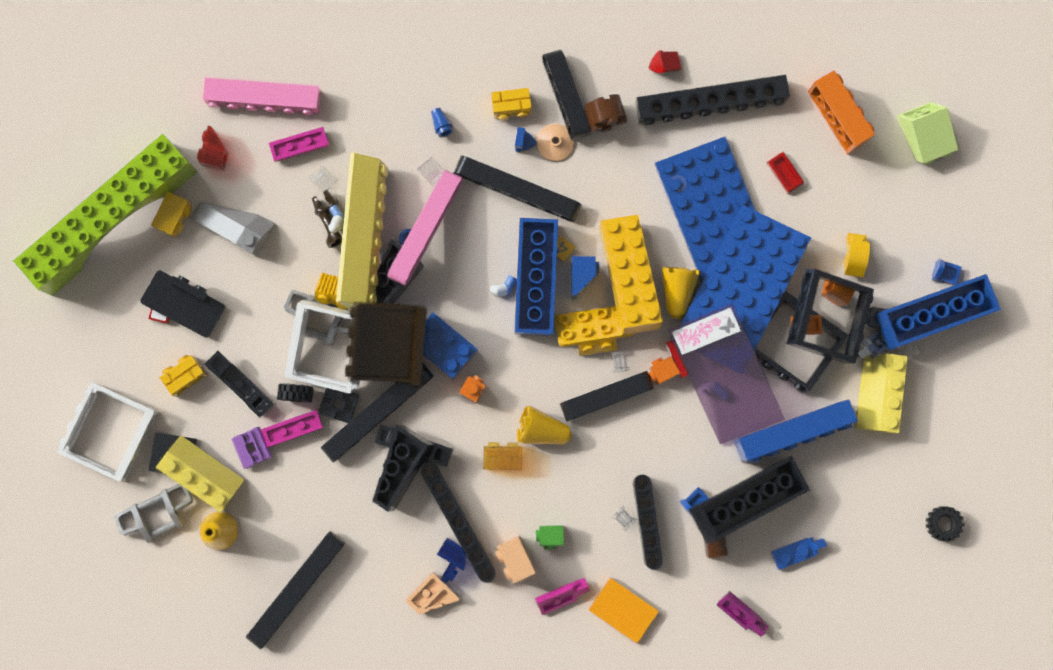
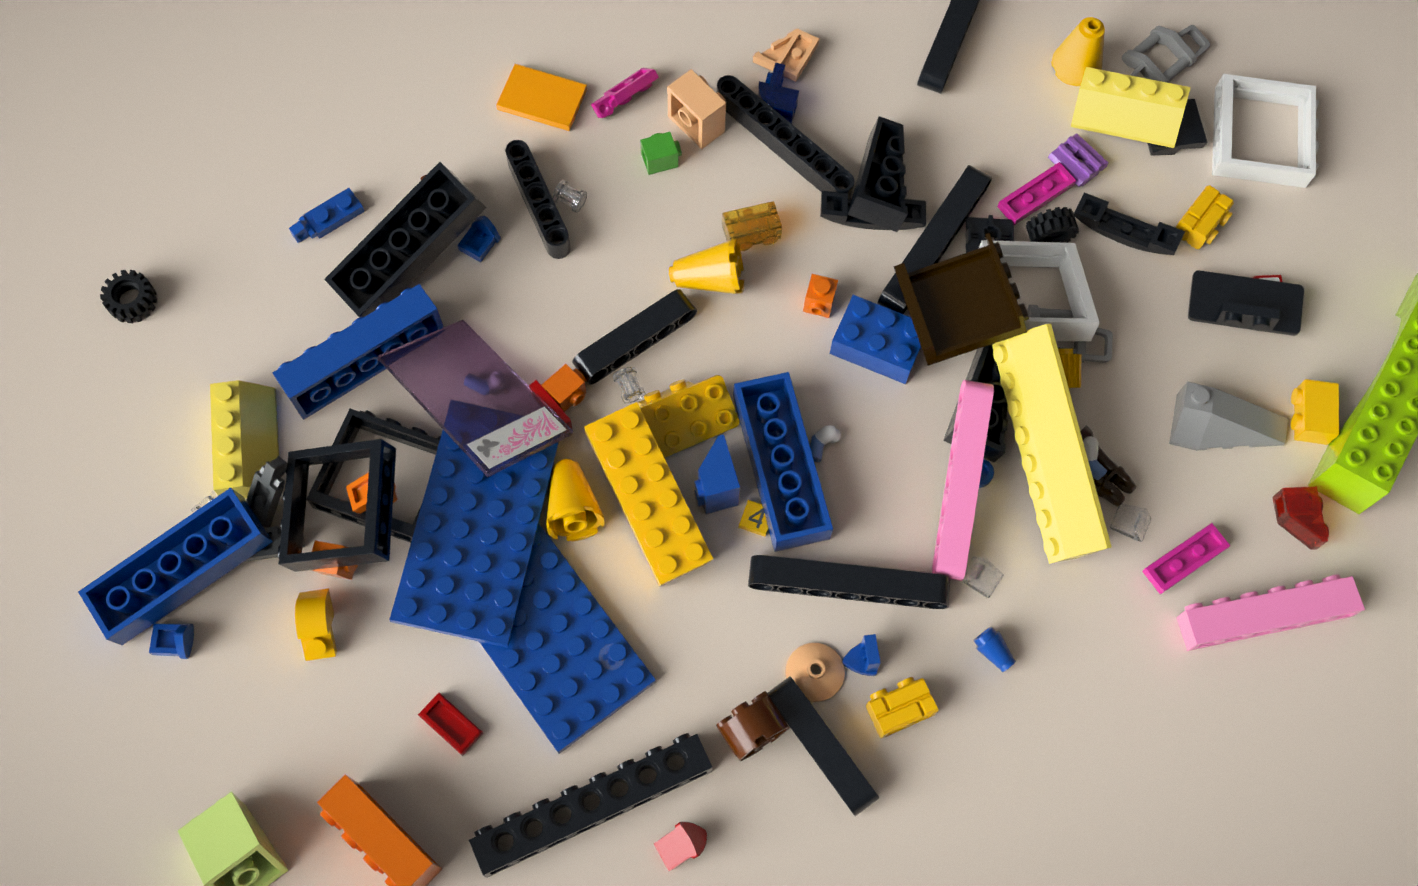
camera: 165 degrees right, 15 degrees down
(742, 614) = (385, 126): magenta hinge -> none

